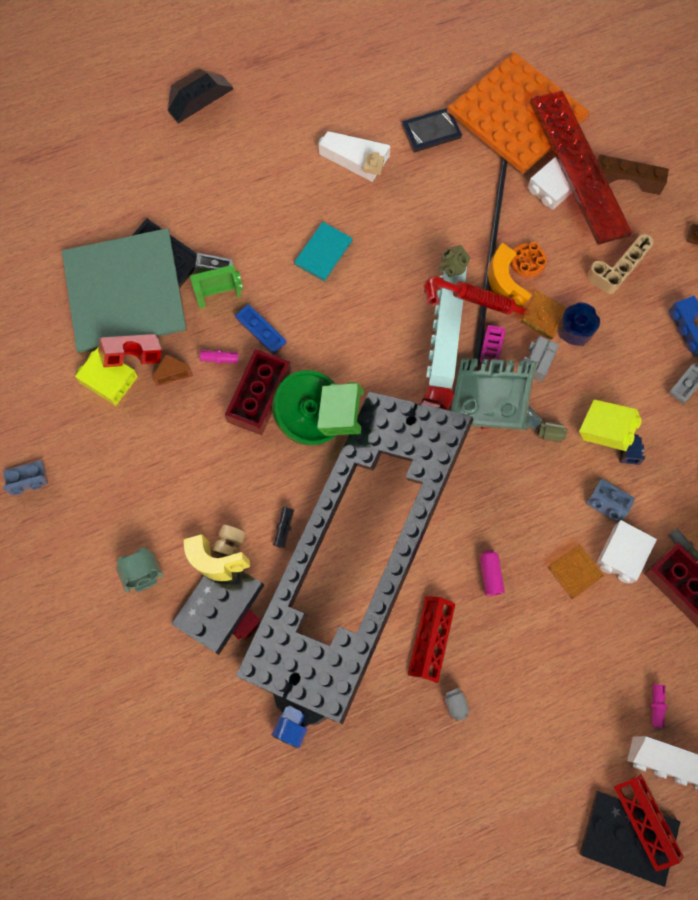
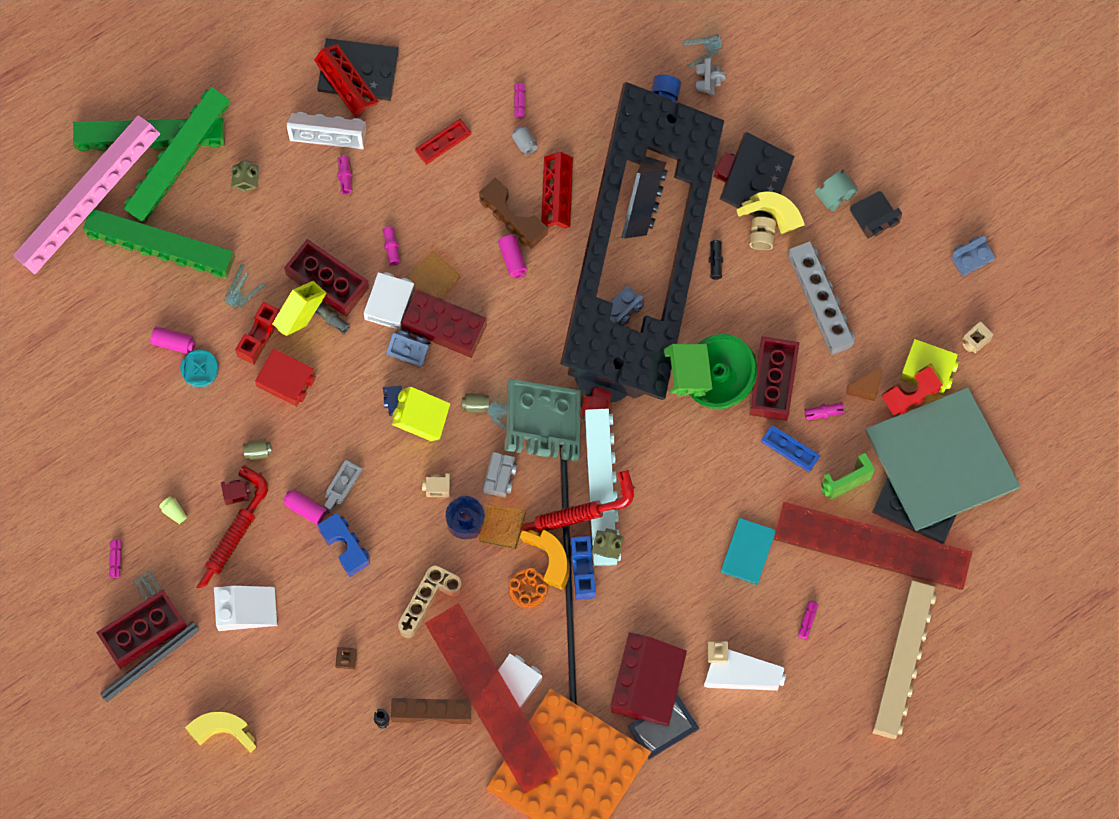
camera: 170 degrees right, 0 degrees up
(46, 390) = (980, 333): none -> tan brick
(106, 539) = (875, 214): none -> black bracket
(188, 417) = (835, 342): none -> light grey brick
(195, 93) = (941, 716): black wedge -> none
(209, 262) = (858, 504): flat silver slope -> none
(212, 232) = (873, 546): none -> clear red plate
(213, 138) = (903, 660): none -> tan brick
(223, 780) = (711, 43): none -> clear light blue plant
(235, 747) = (712, 75): none -> light grey hips
(286, 186) = (808, 620): none -> dark pink axle
(344, 594) = (644, 198): none -> black slope
(388, 498) = (625, 305): none -> sand blue bracket
(438, 161) = (648, 679): none -> dark red slope
(453, 757) = (519, 100): none -> dark pink axle
(478, 251) = (583, 568): none -> blue arch
(494, 334) = (550, 496): dark pink slope -> none
(499, 642) = (528, 229): none -> reddish brown arch
(545, 725) = (443, 141): none -> red tile
(574, 515) = (444, 323): none -> dark red brick
(600, 360) = (437, 486): none -> tan brick
(616, 613) = (391, 246): none -> dark pink pin
(676, 171) = (384, 718): none -> black pin

